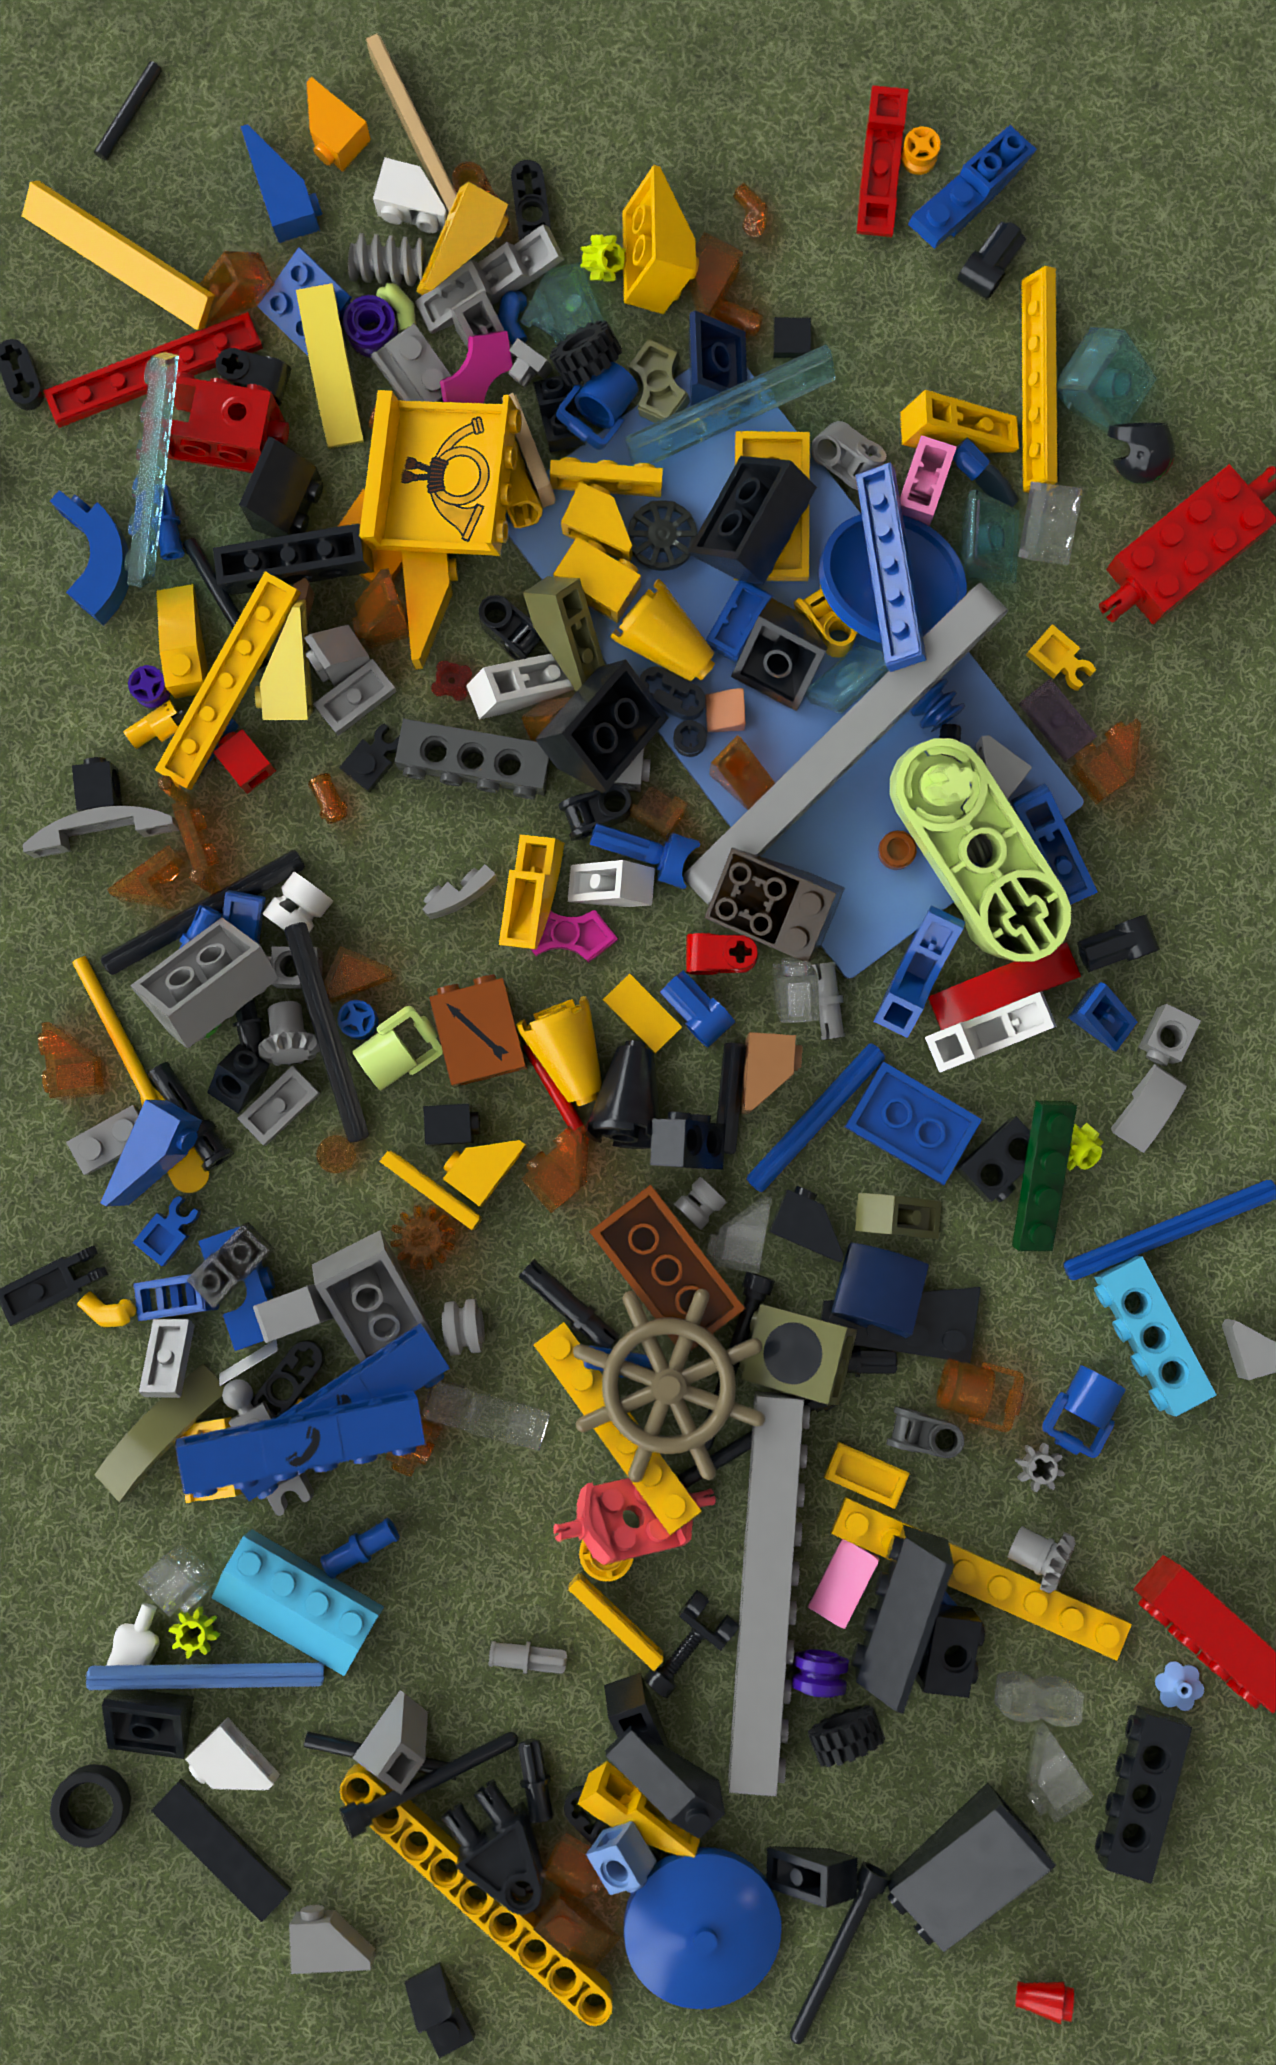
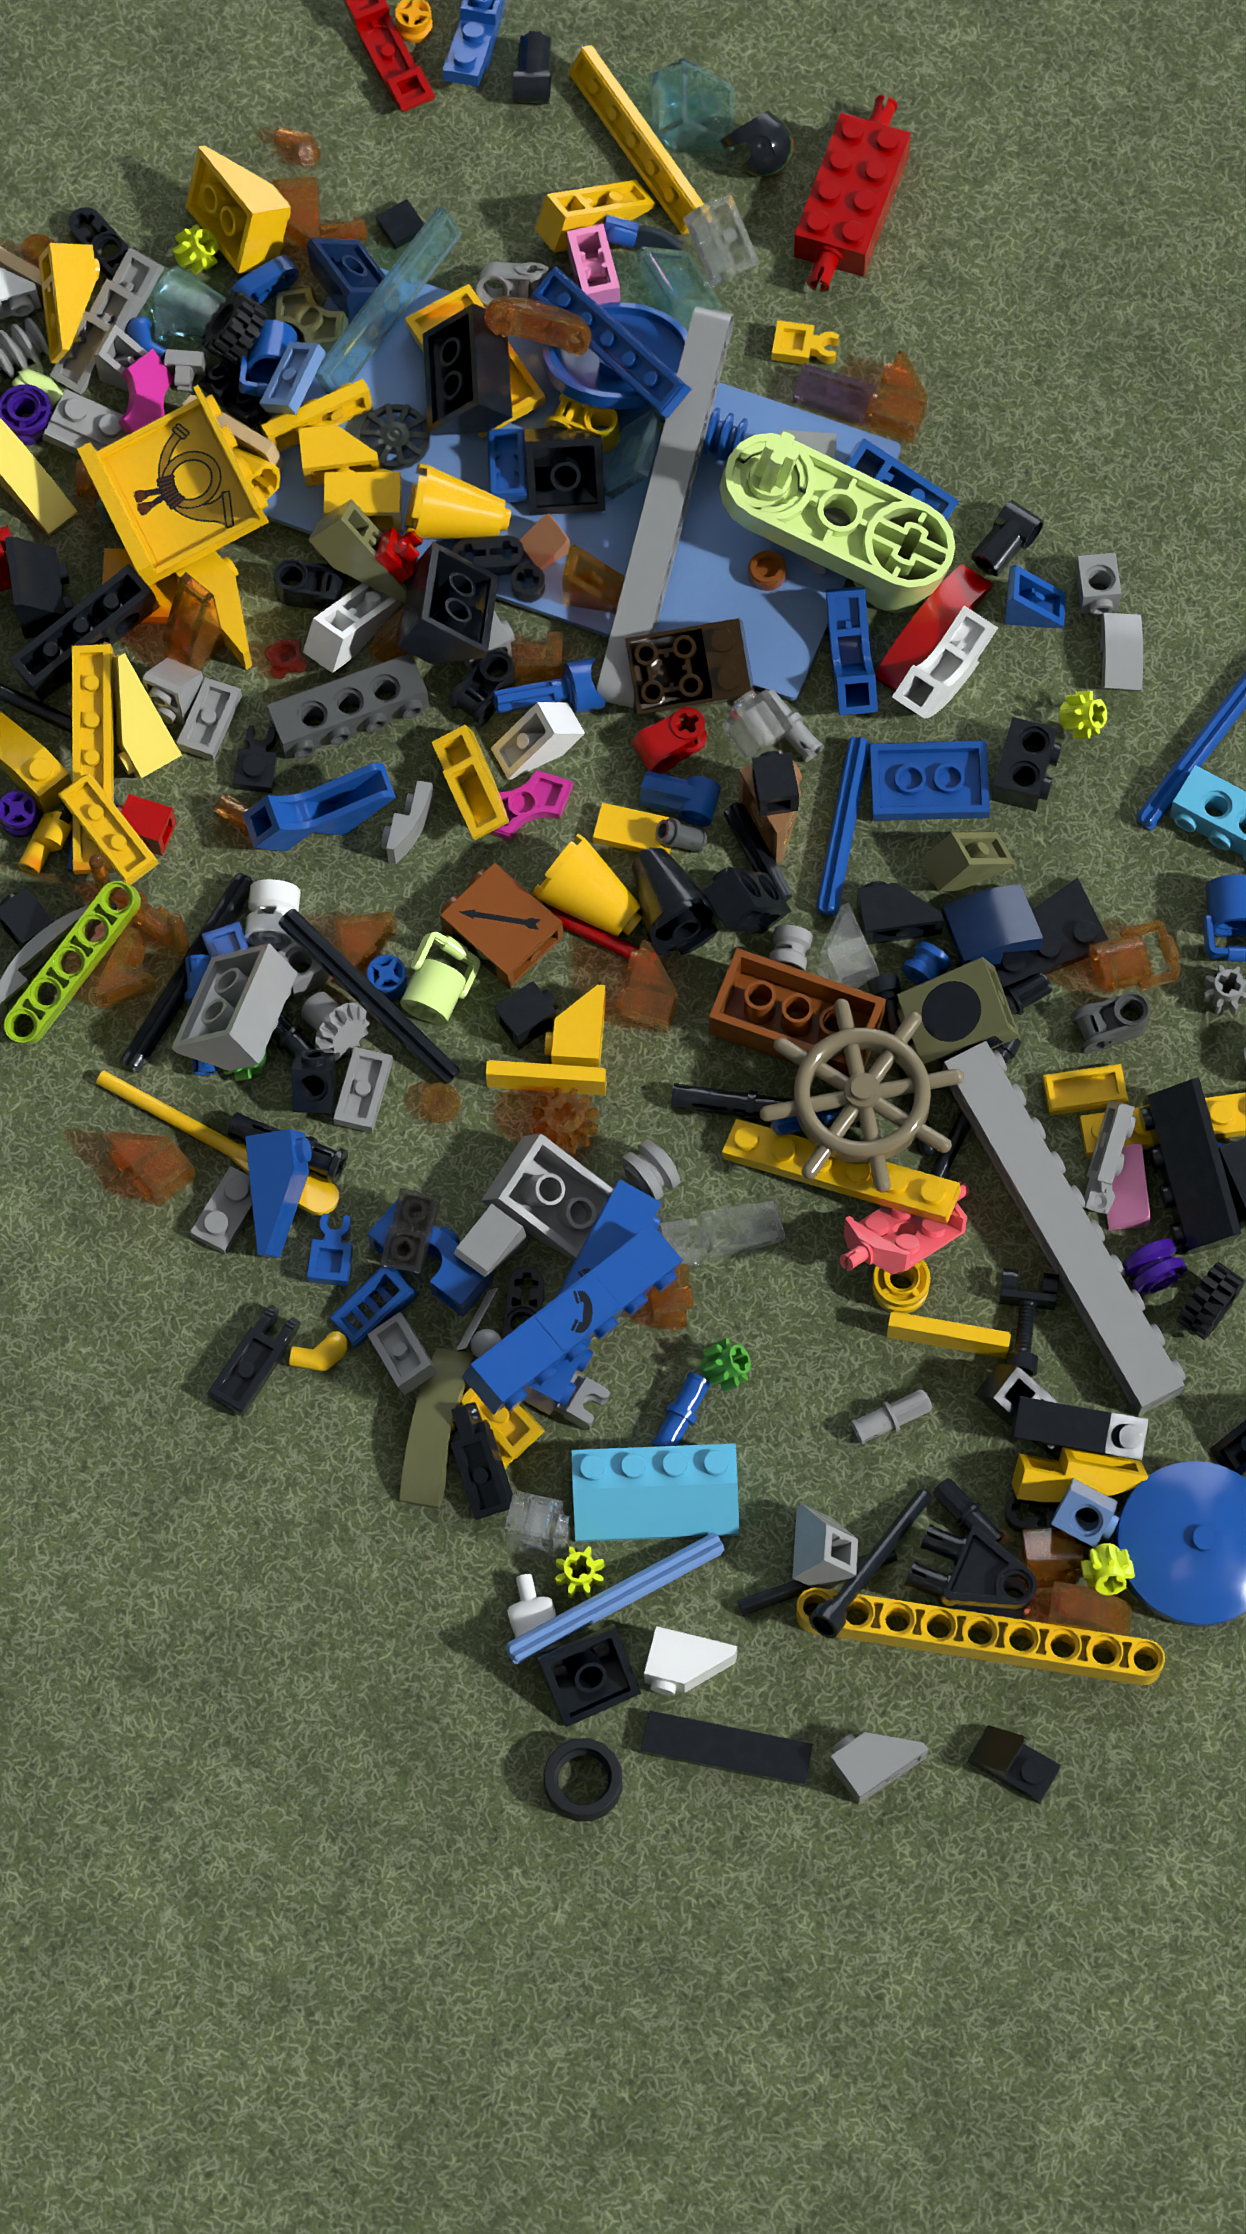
camera: 30 degrees left, 15 degrees down
(87, 854) = (54, 971): none -> lime beam
(166, 1500) = (480, 1463): none -> black hinge
(200, 753) = (108, 828): none -> yellow tile
(387, 839) = (327, 809): none -> blue arch
(419, 1533) = (725, 1365): none -> bright green gear
(593, 648) = (398, 553): none -> red tile
(602, 432) = (292, 378): none -> medium blue plate
(610, 1916) = (1107, 1569): none -> neon yellow gear
(643, 323) = (268, 279): none -> blue beam
(668, 1042) = (672, 833): none -> dark grey pin
(768, 1068) = (775, 783): none -> black brick
(804, 1287) = (926, 963): none -> blue wheel
(838, 510) = (538, 323): none -> clear orange connector
(844, 1554) = (1107, 1156): none -> light grey hinge
(1044, 1175) = (1068, 750): dark green plate -> none

